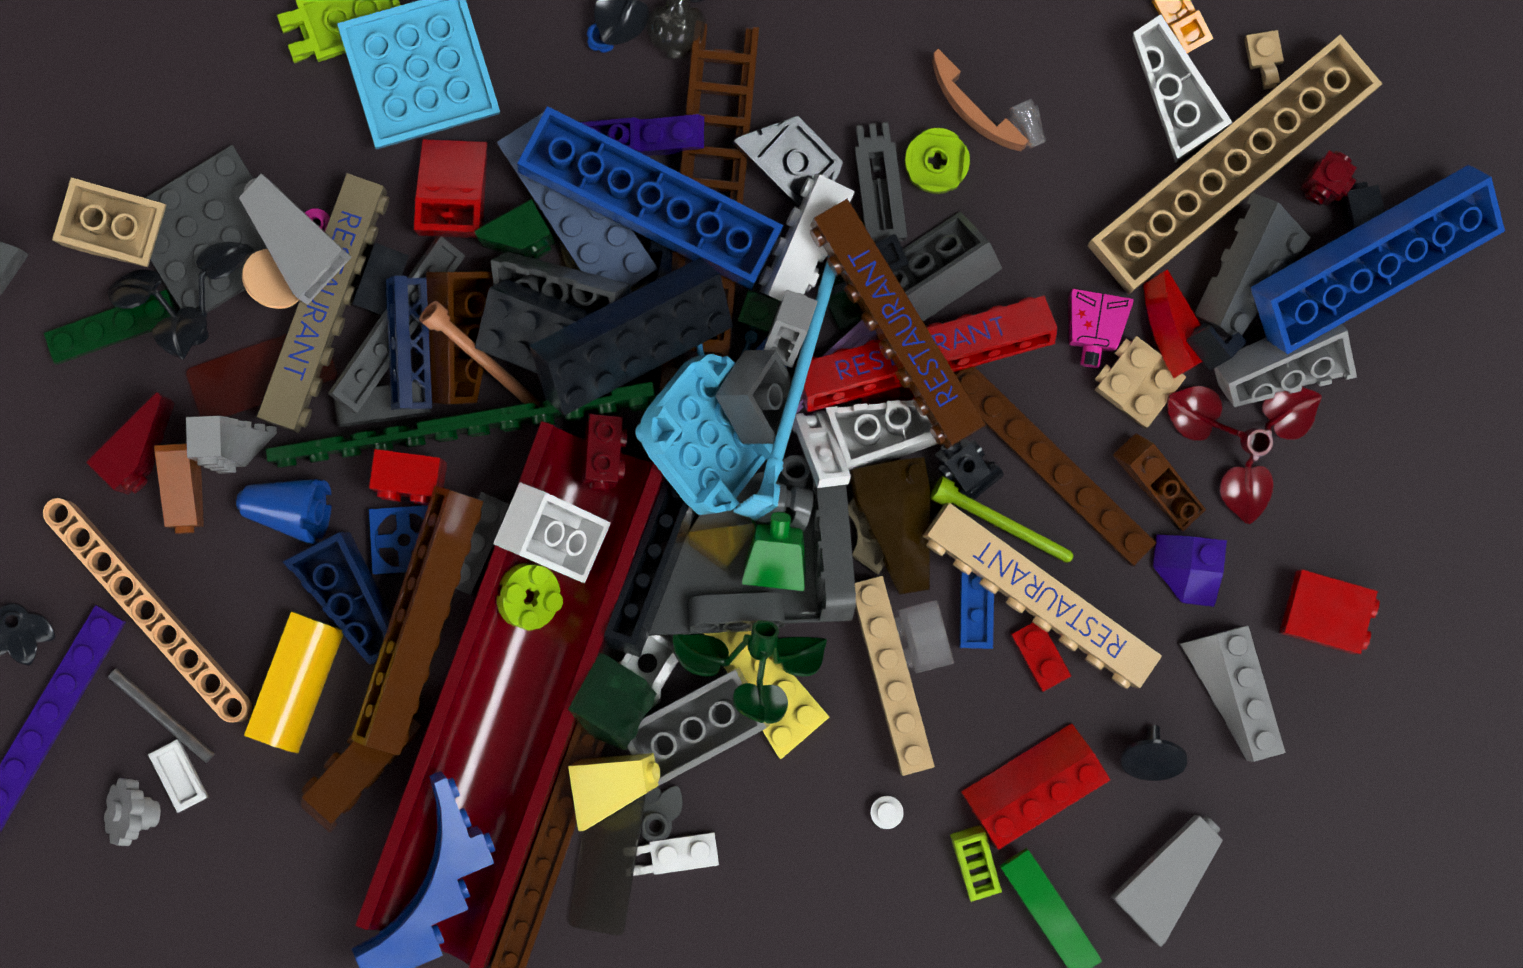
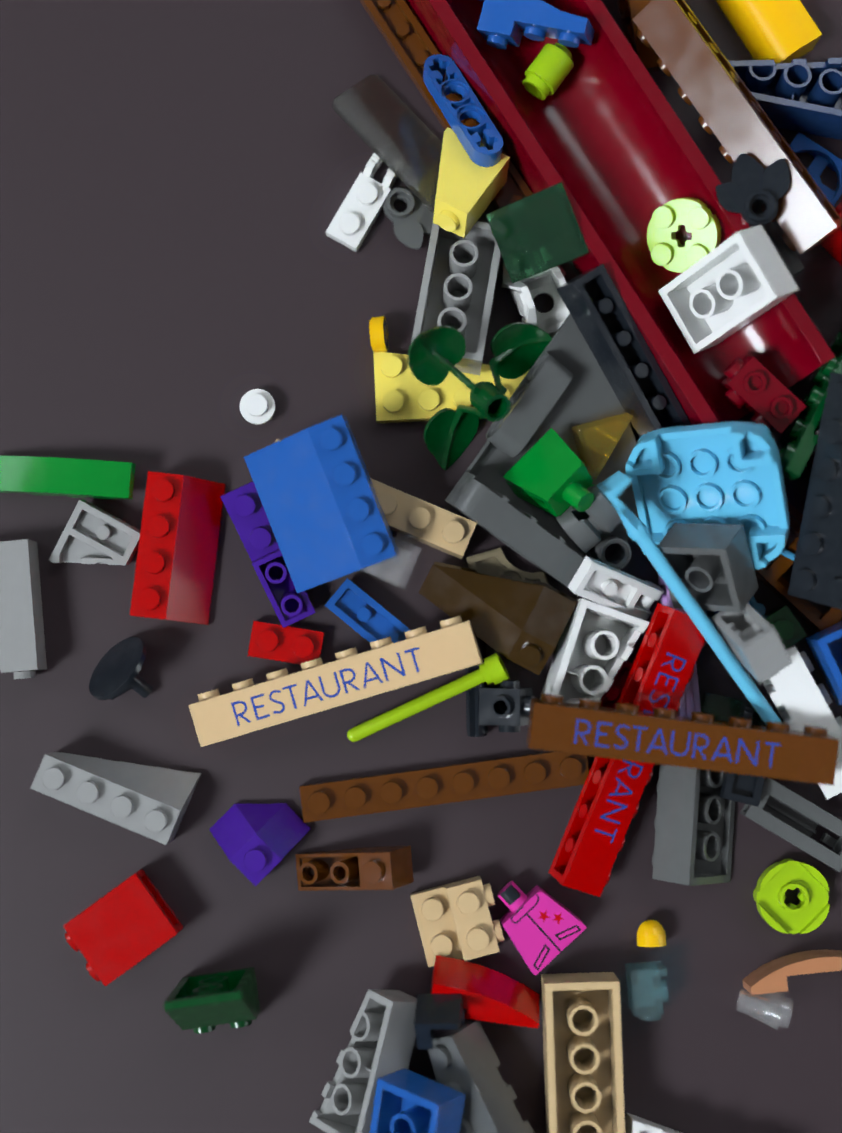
camera: 130 degrees right, 0 degrees up
(461, 573) = (753, 184): none -> black plate
(480, 789) = (548, 70): none -> lime brick
(561, 832) = (456, 111): none -> blue beam
(765, 765) = (378, 334): none -> yellow tile
(926, 702) = (321, 504): none -> blue slope
(970, 836) = (175, 459): lime slope -> none
(988, 718) = (267, 560): none -> dark purple slope
(1040, 239) = (651, 934): none -> yellow hinge
(1073, 852) = (96, 538): none -> light grey wing
(1081, 214) = (646, 989): none -> clear light blue brick
(1244, 489) = (286, 941): dark red plant -> none
(1325, 507) = (214, 1000): none -> dark green slope

